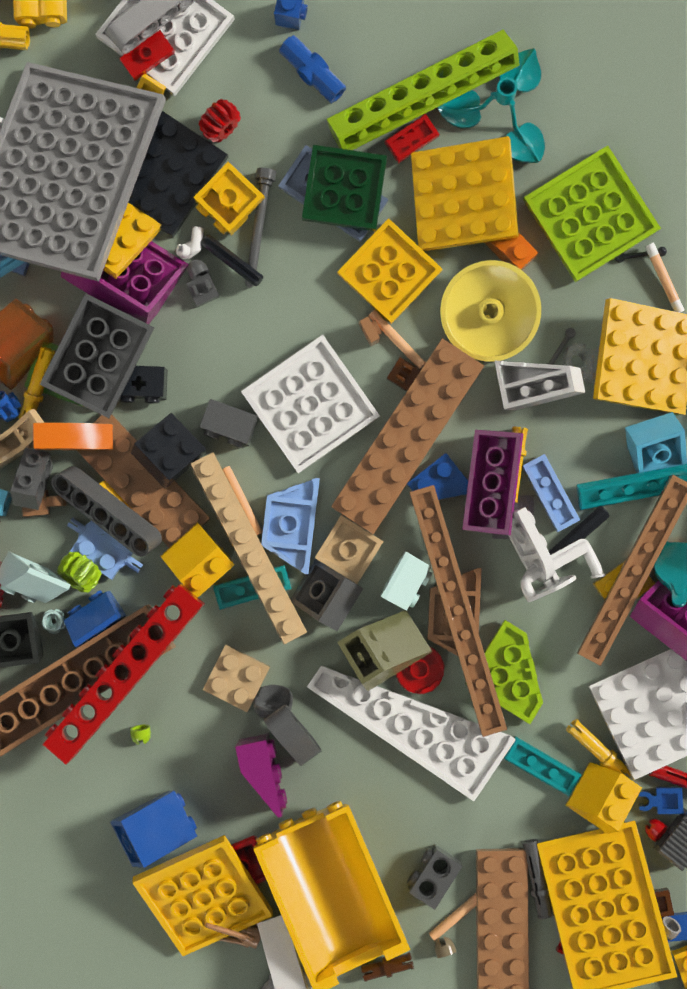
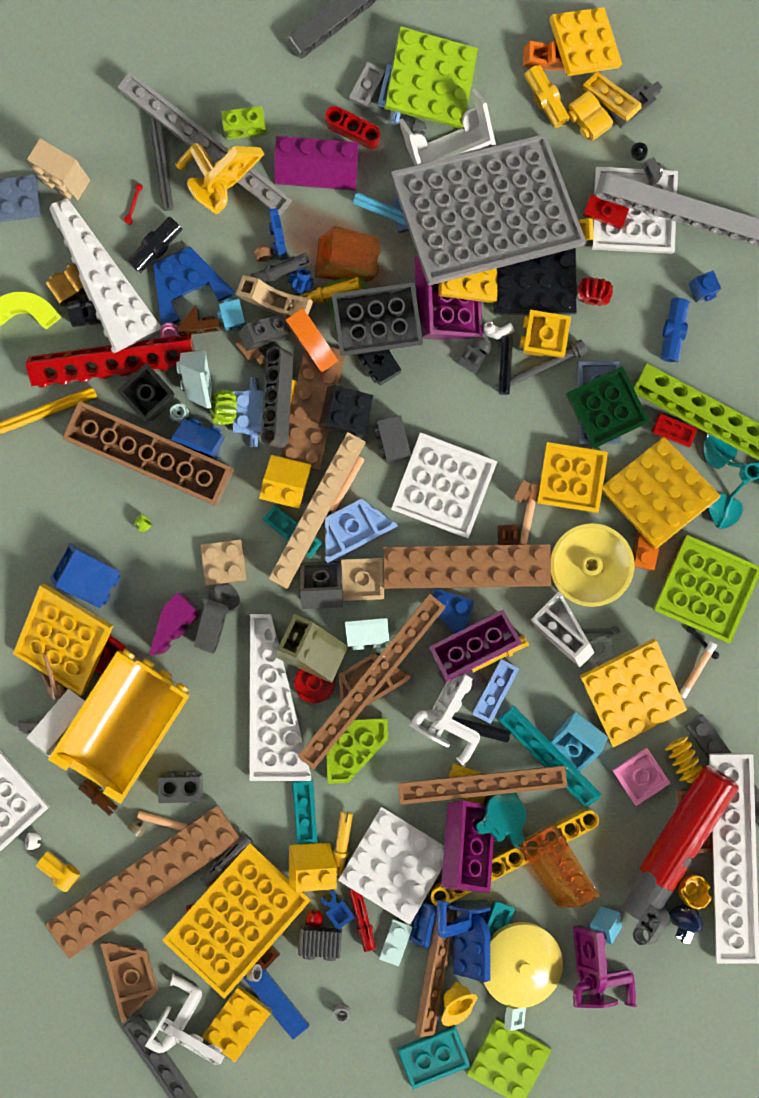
camera: 60 degrees right, 0 degrees up
(67, 747) = (100, 480): red brick -> none

